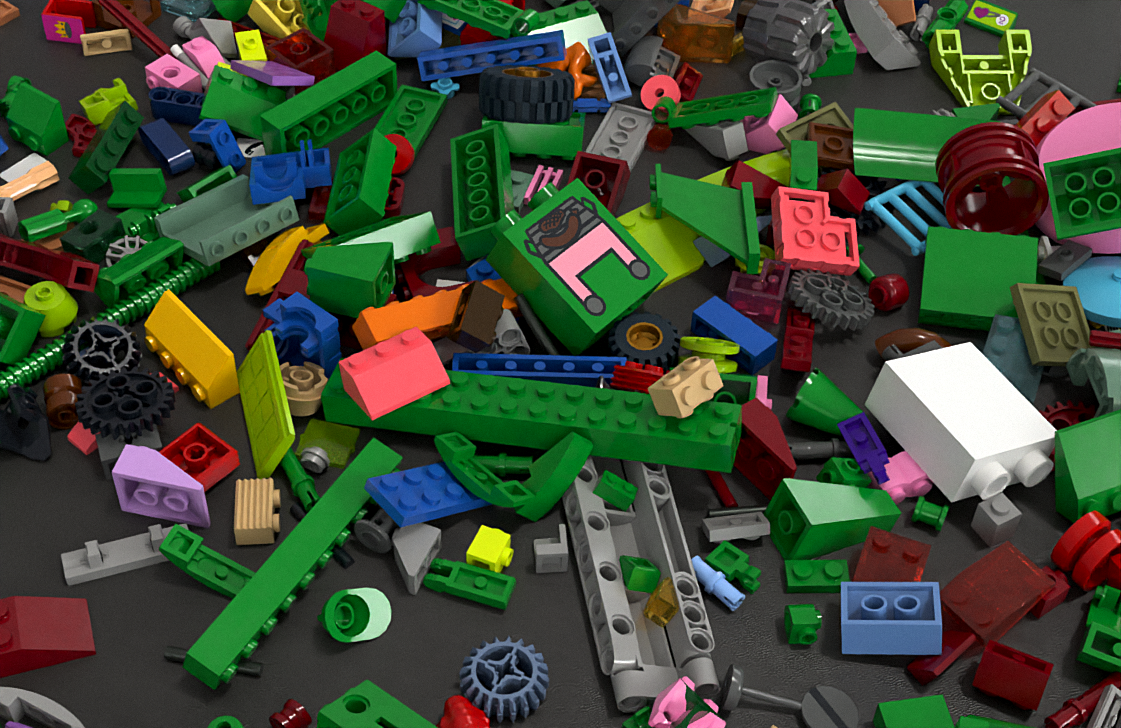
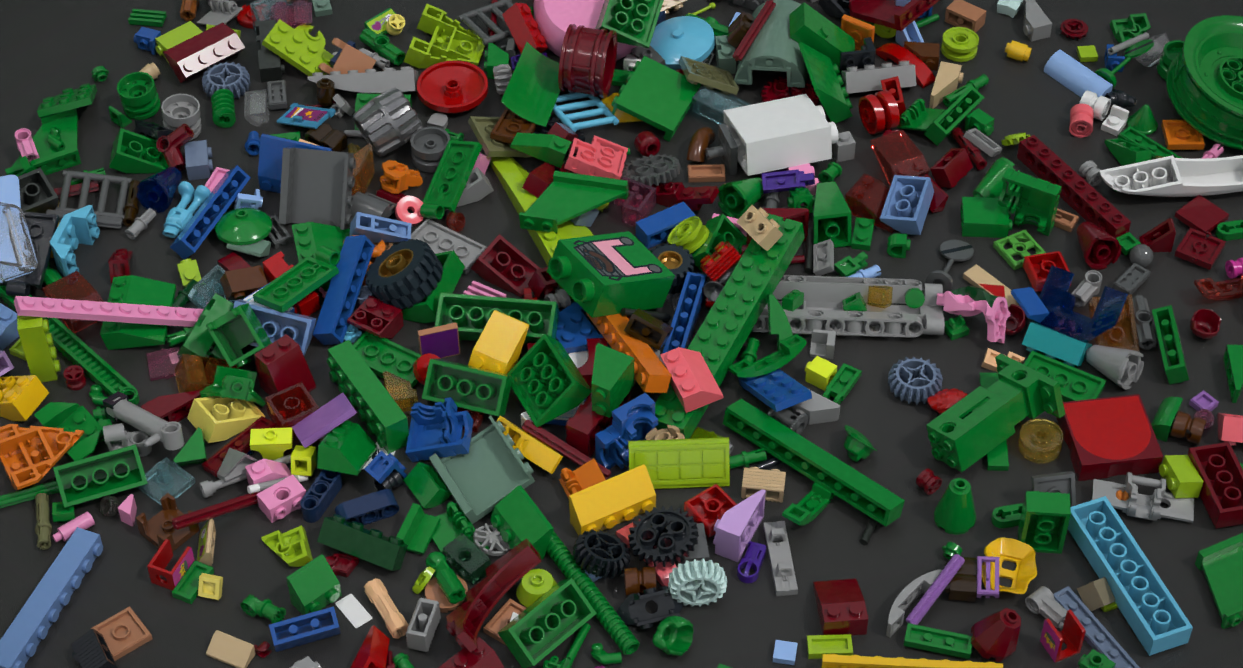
camera: 75 degrees left, 0 degrees up
(47, 55) = (210, 586): none -> light yellow tile
(48, 451) = (697, 582): none -> light aqua gear
(55, 45) = (187, 587): none -> green tile
(119, 524) = (753, 559): none -> dark purple piece
(233, 318) = (581, 478): none -> orange hinge
(346, 133) = (400, 391): none -> clear yellow slope
(428, 191) = (499, 343): none -> yellow slope
(433, 149) = (439, 340): none -> dark purple tile
(458, 98) = (377, 318): none -> dark red slope
(673, 649) = (914, 298): none -> green tile
(710, 73) = (398, 177): none -> orange hinge
(840, 94) = (438, 120): none -> light grey tile
(864, 366) = (706, 173): none -> nougat tile
(899, 85) = (452, 86): none -> red dish
(992, 19) = (398, 21): none -> light yellow wheel

